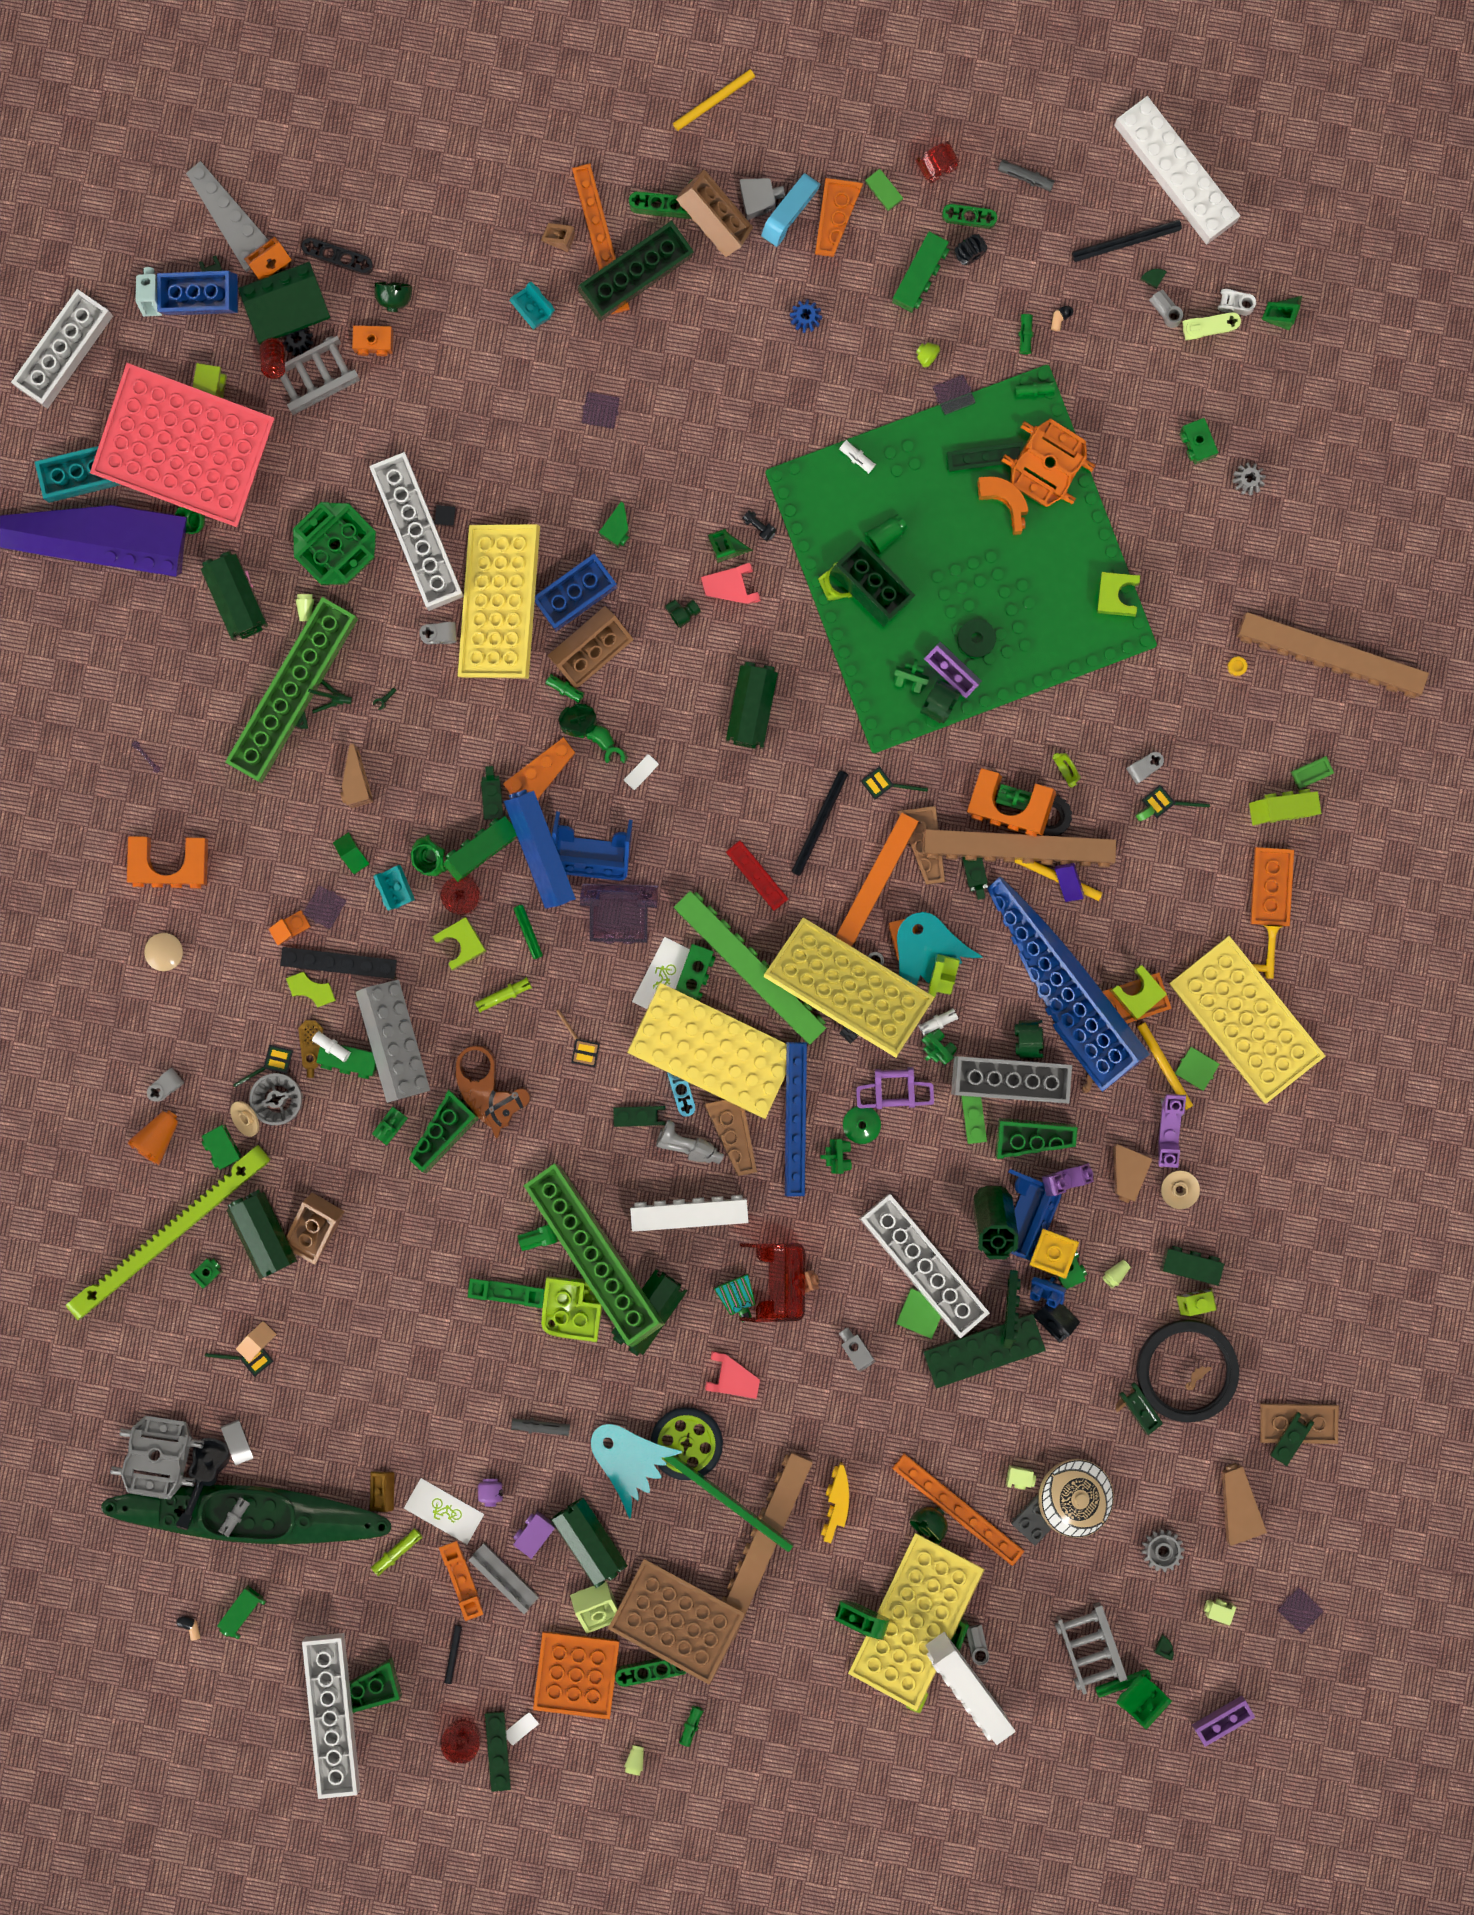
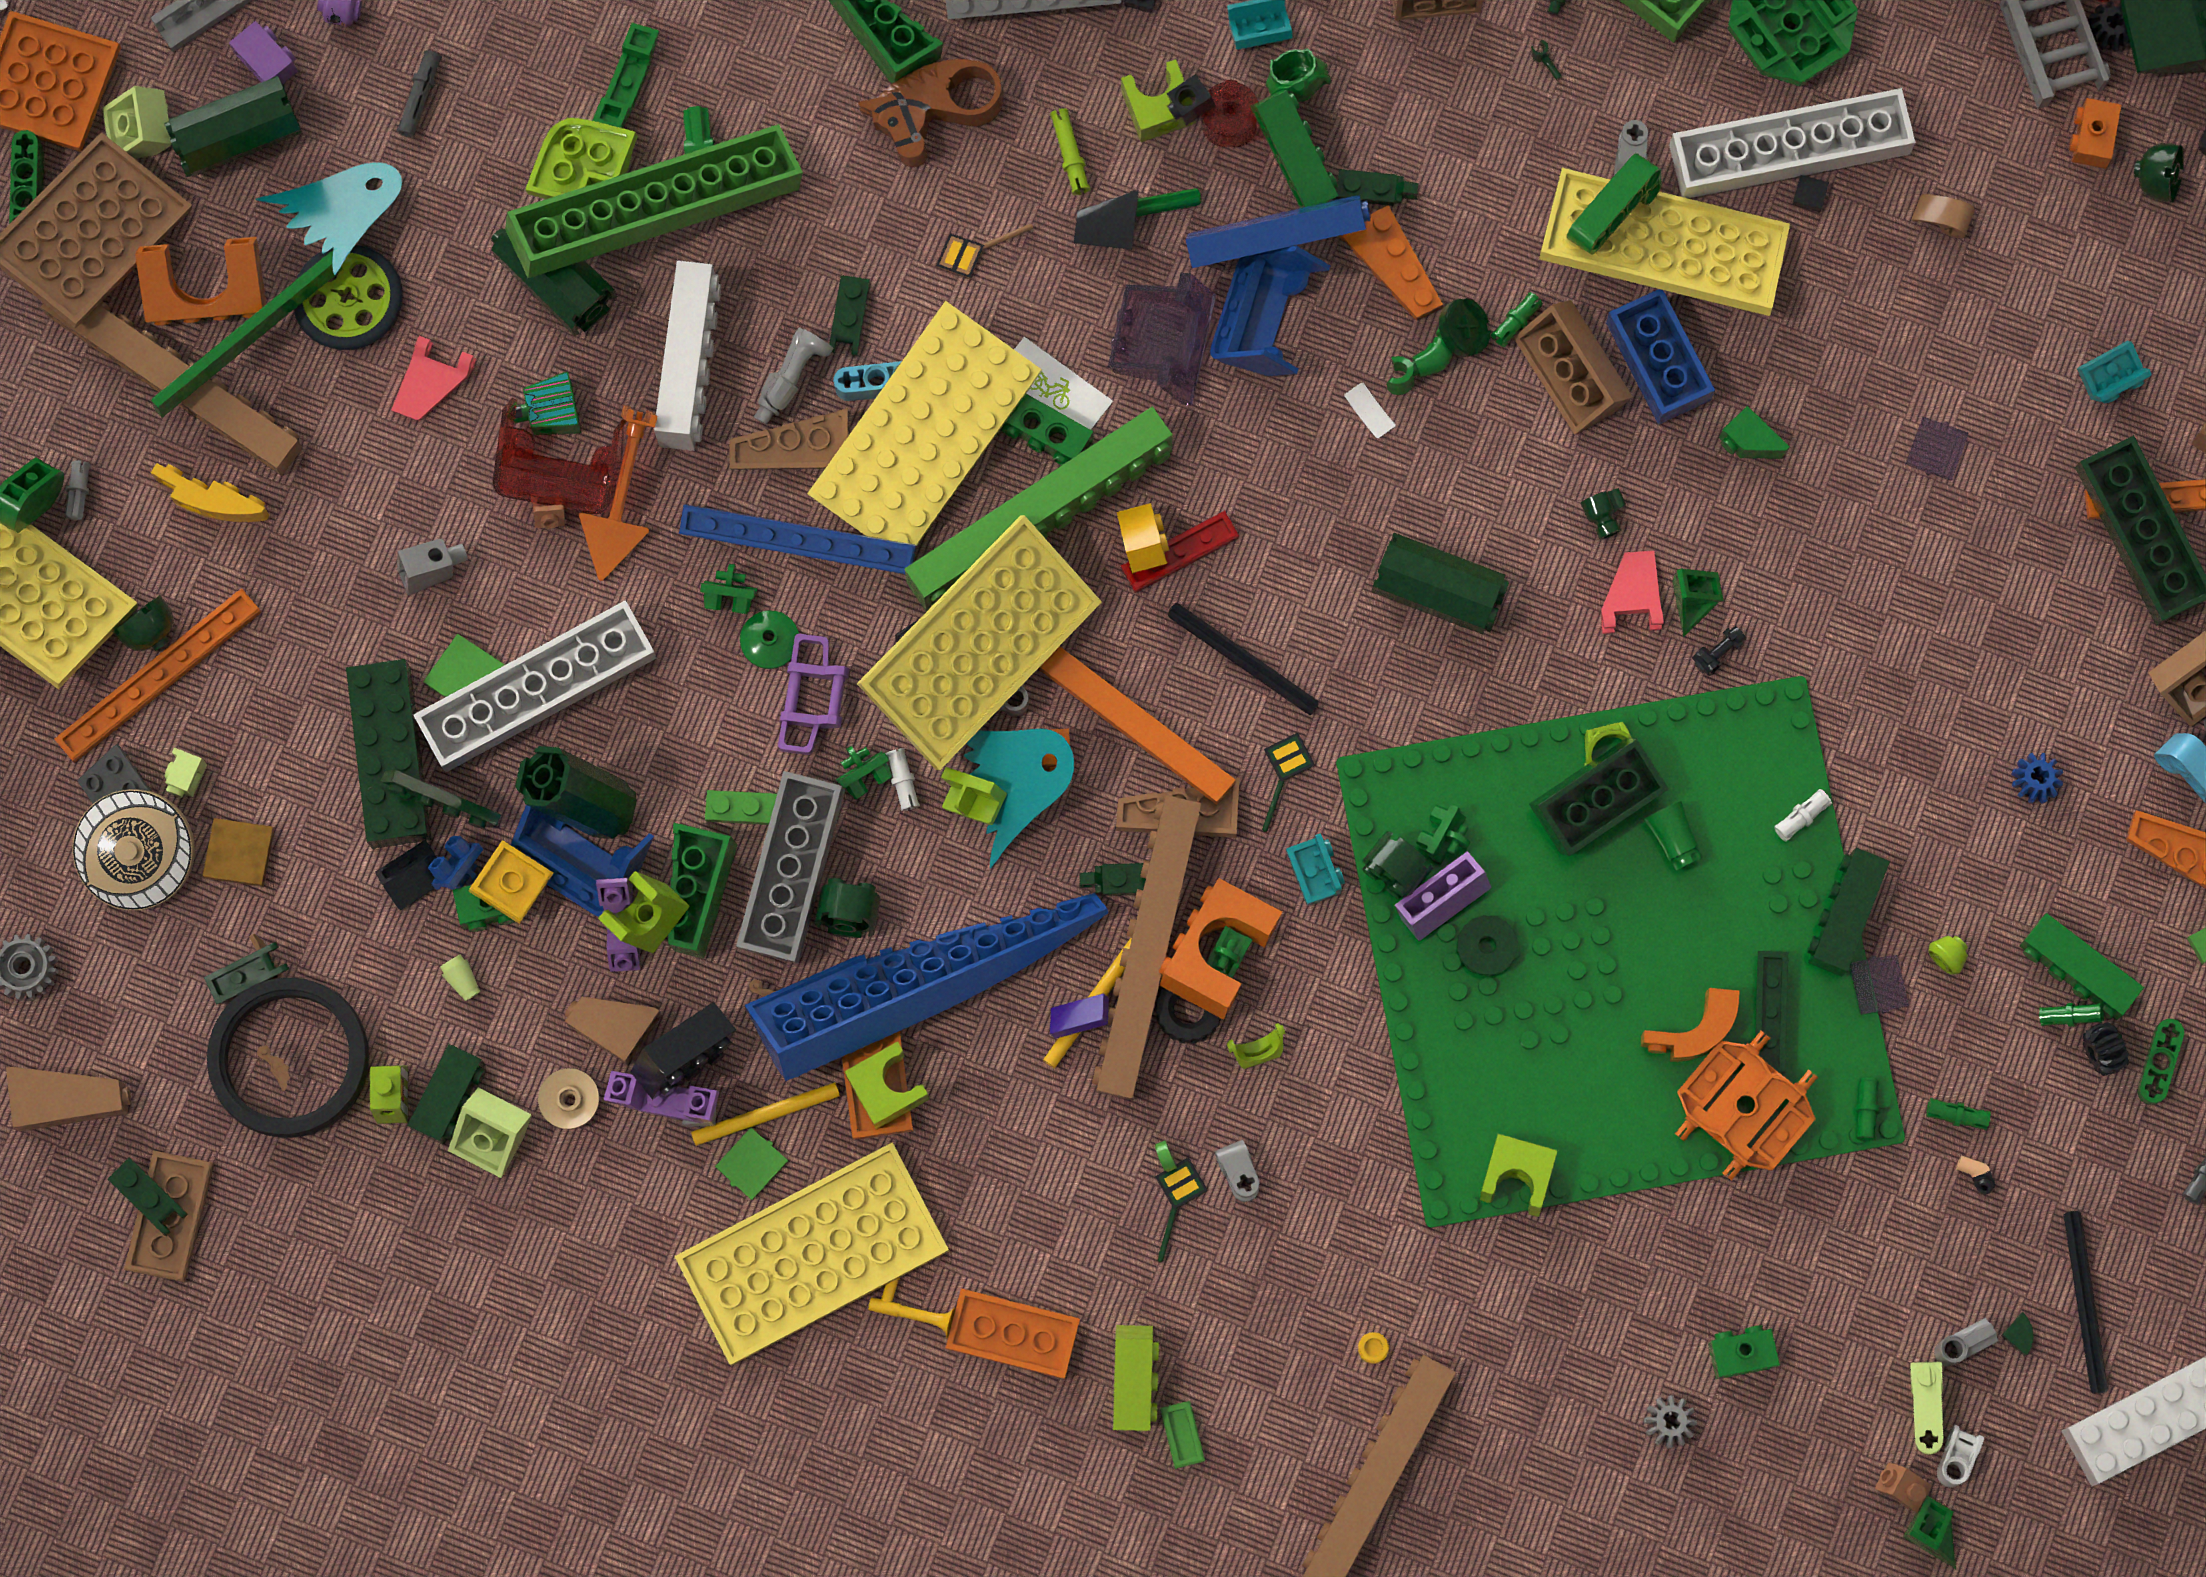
camera: 100 degrees right, 10 degrees down
(444, 427) = (1949, 213): none -> medium nougat panel
(462, 912) = (1190, 88): none -> black brick
(483, 635) = (1633, 183): none -> green beam
(549, 960) = (1108, 222): none -> black slope
(713, 1558) = (167, 301): none -> orange arch
(756, 899) = (1142, 538): none -> yellow brick
(816, 1237) = (609, 537): none -> orange piece
(848, 1589) = (77, 490): none -> light grey axle
(915, 419) = (1848, 912): none -> dark green brick
(948, 753) = (1315, 870): none -> teal bracket
(952, 273) = (2071, 1014): none -> green pin
(1062, 1432) = (238, 852): none -> pearl gold tile
(1072, 1167) = (635, 922): none -> lime piece
(1142, 1121) = (683, 1051): none -> black brick
(1210, 1234) = (489, 1132): none -> yellowish green slope
(1260, 334) = (1903, 1486): none -> nougat bracket

